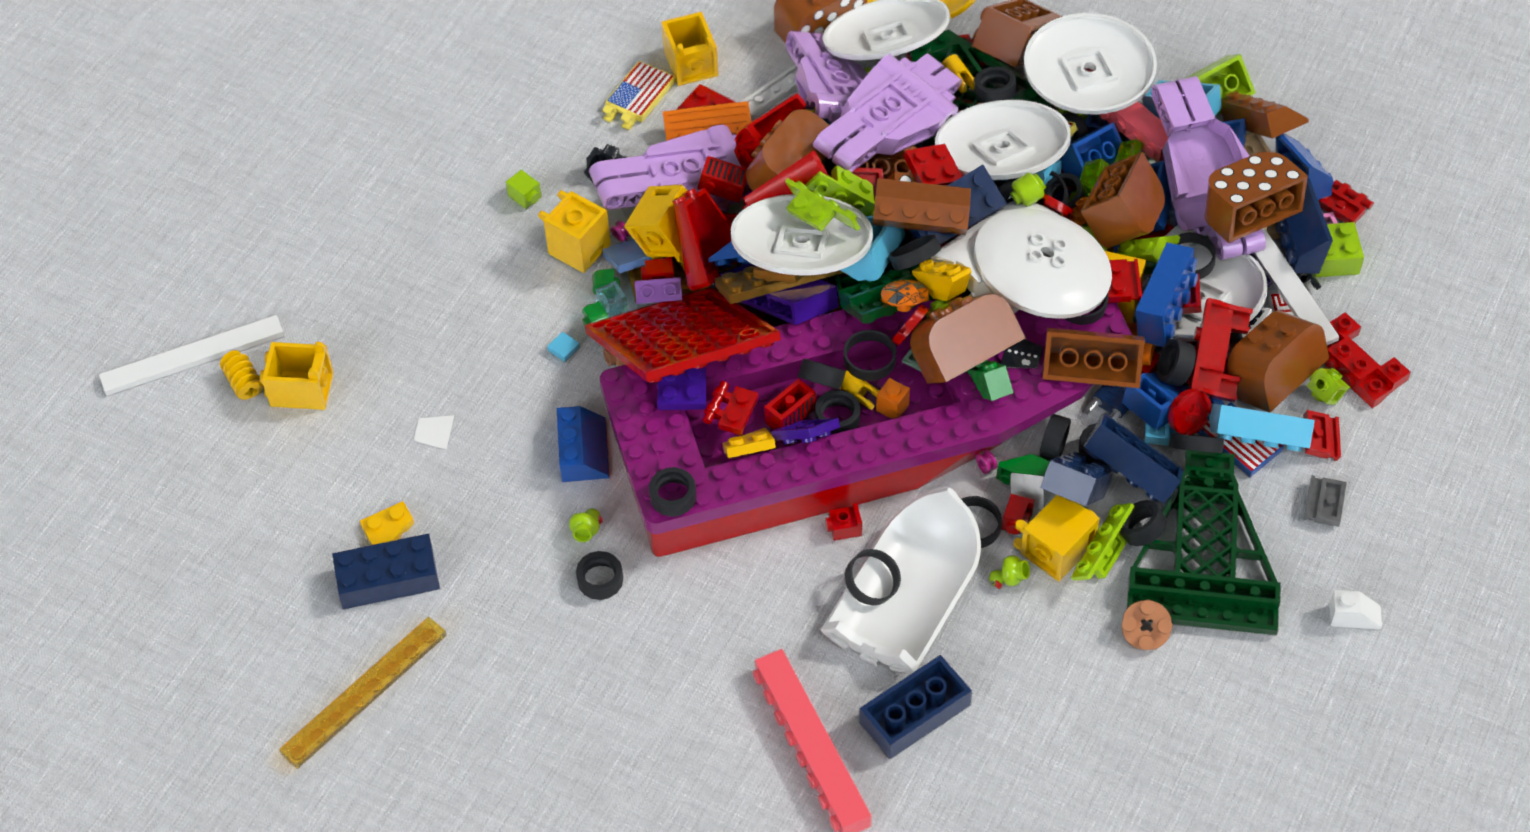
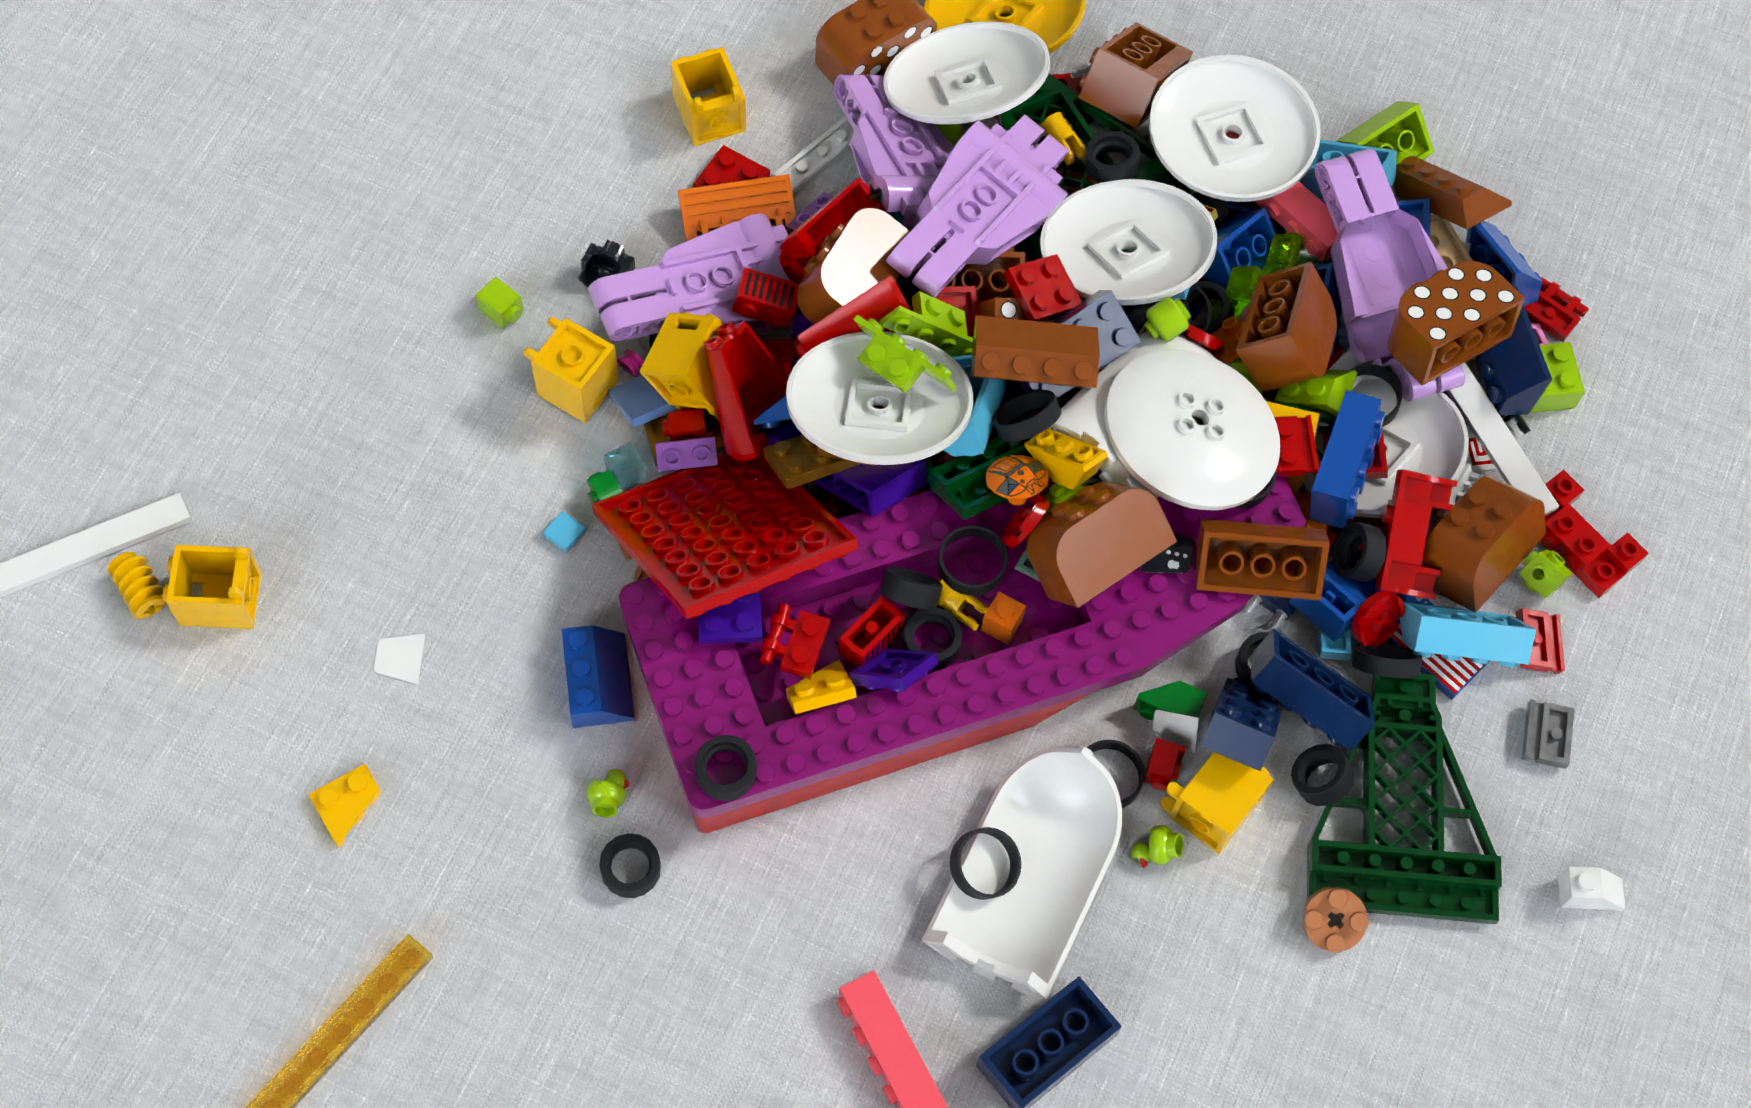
camera: 10 degrees left, 10 degrees up
(385, 571) = (347, 869): dark blue brick -> none
(603, 277) = (613, 436): green plate -> none
(638, 94) = (642, 160): tile -> none
(844, 522) = (938, 791): red brick -> none
(986, 462) = (1122, 691): dark pink bush -> none
(991, 380) = (1135, 599): slope -> none
(1055, 437) = (1208, 657): black tyre -> none
(1105, 546) = (1277, 808): lime bracket -> none

